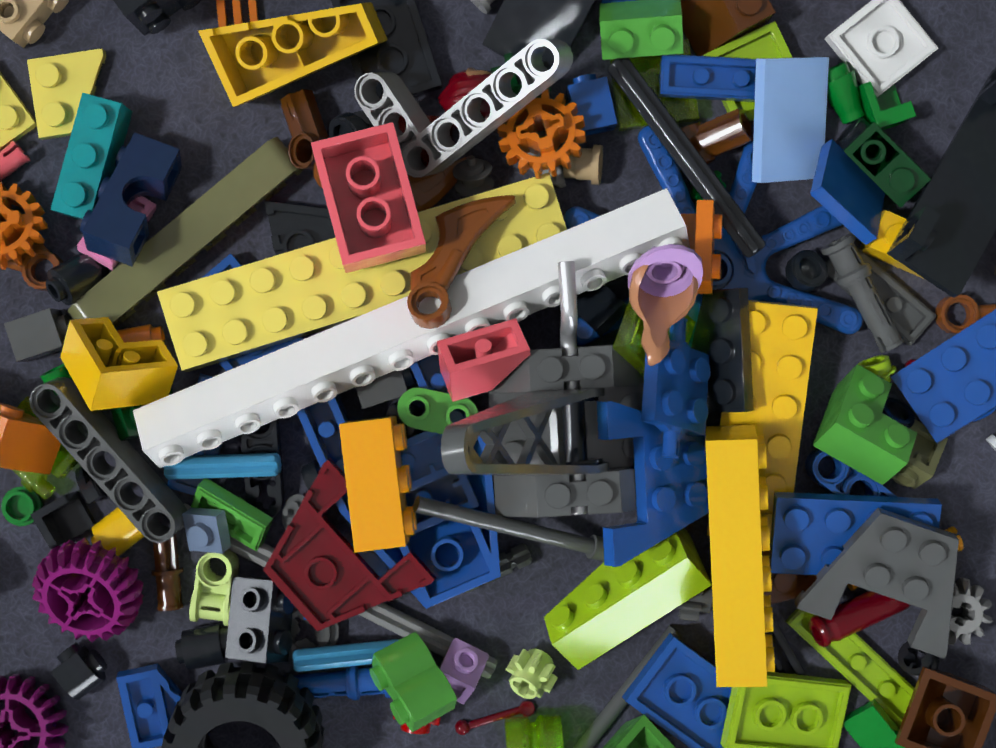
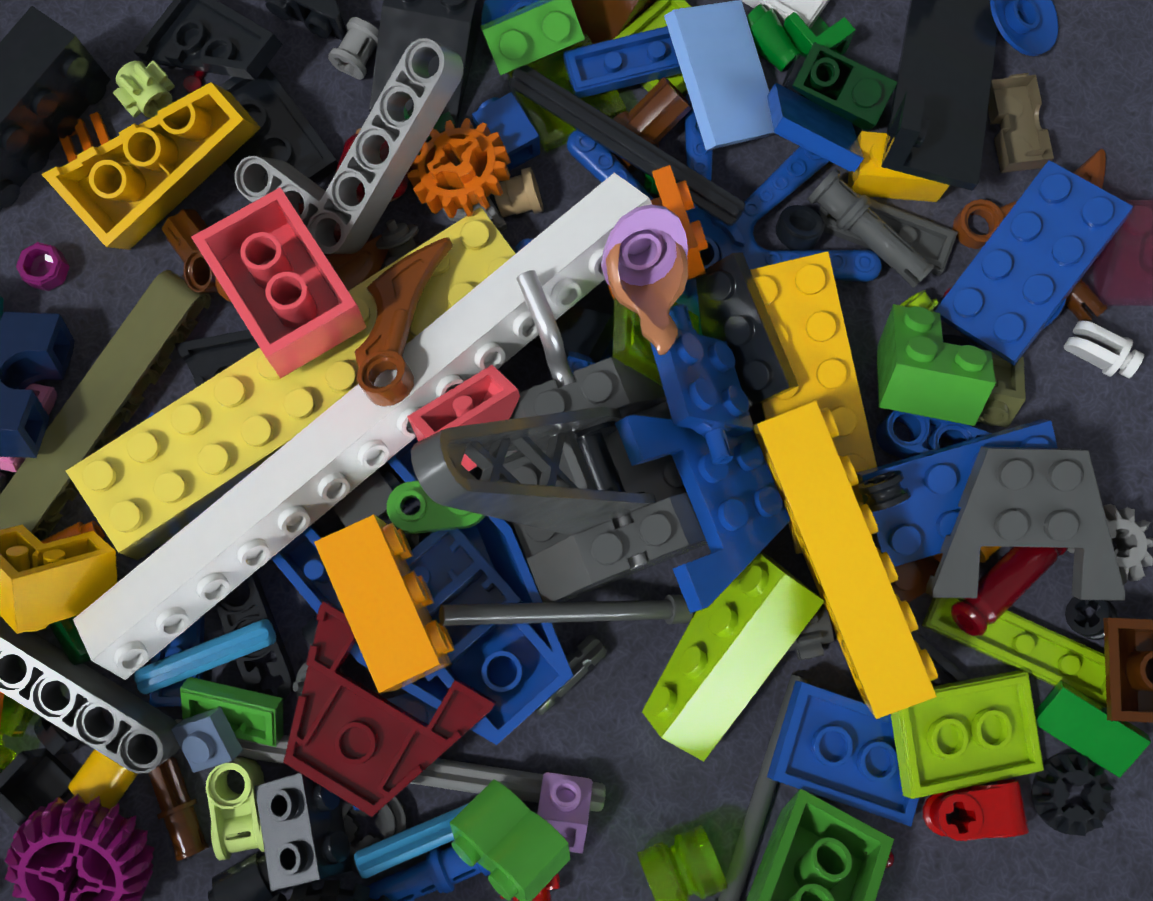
camera: 25 degrees left, 10 degrees down
(172, 97) = (42, 266): none -> magenta tile
(525, 708) = (591, 881): dark red hinge -> none
(531, 673) = (650, 785): yellowish green gear -> none
(787, 519) = (884, 490): none -> black bush

